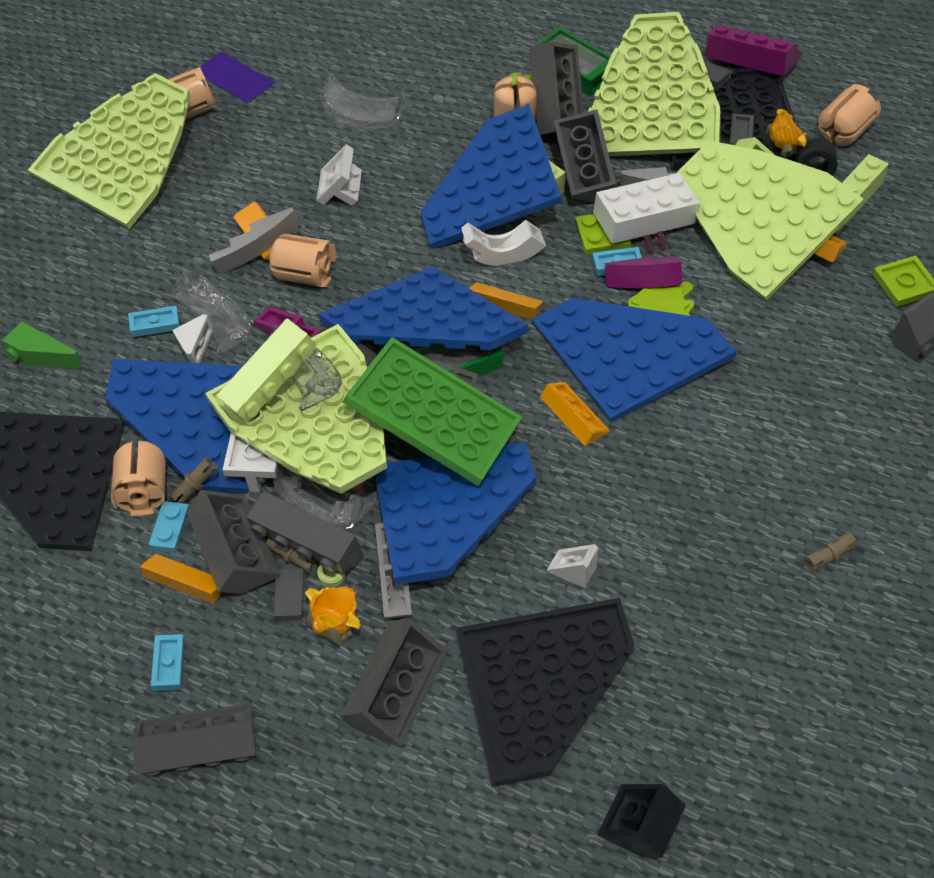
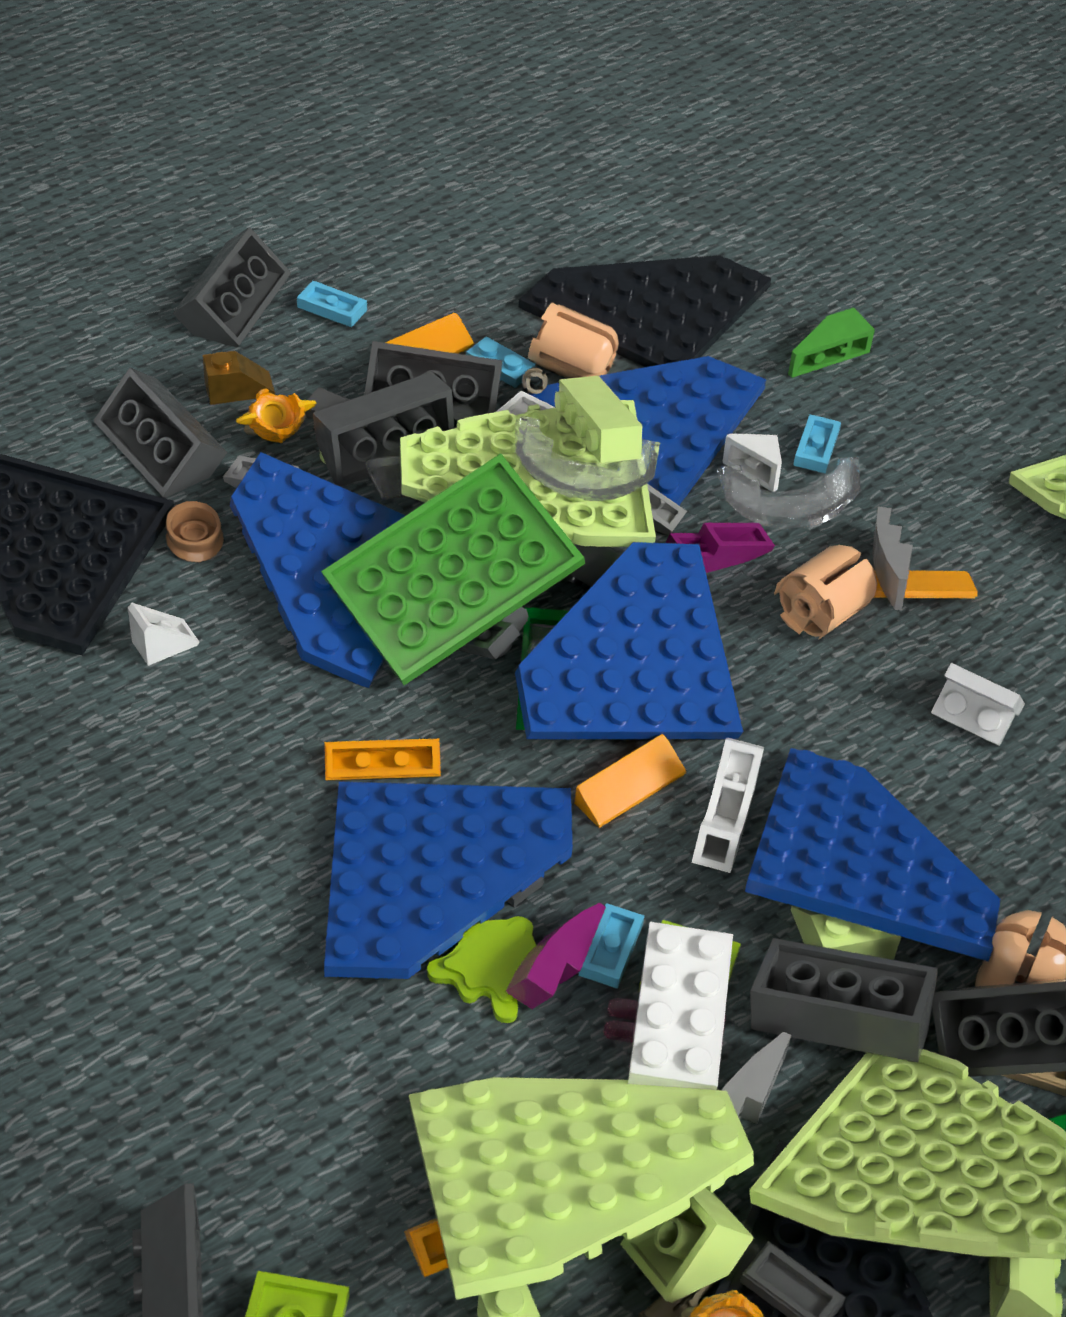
camera: 115 degrees right, 5 degrees down
(303, 671) = (233, 377): none -> pearl gold slope
(471, 604) = (194, 531): none -> medium nougat piece

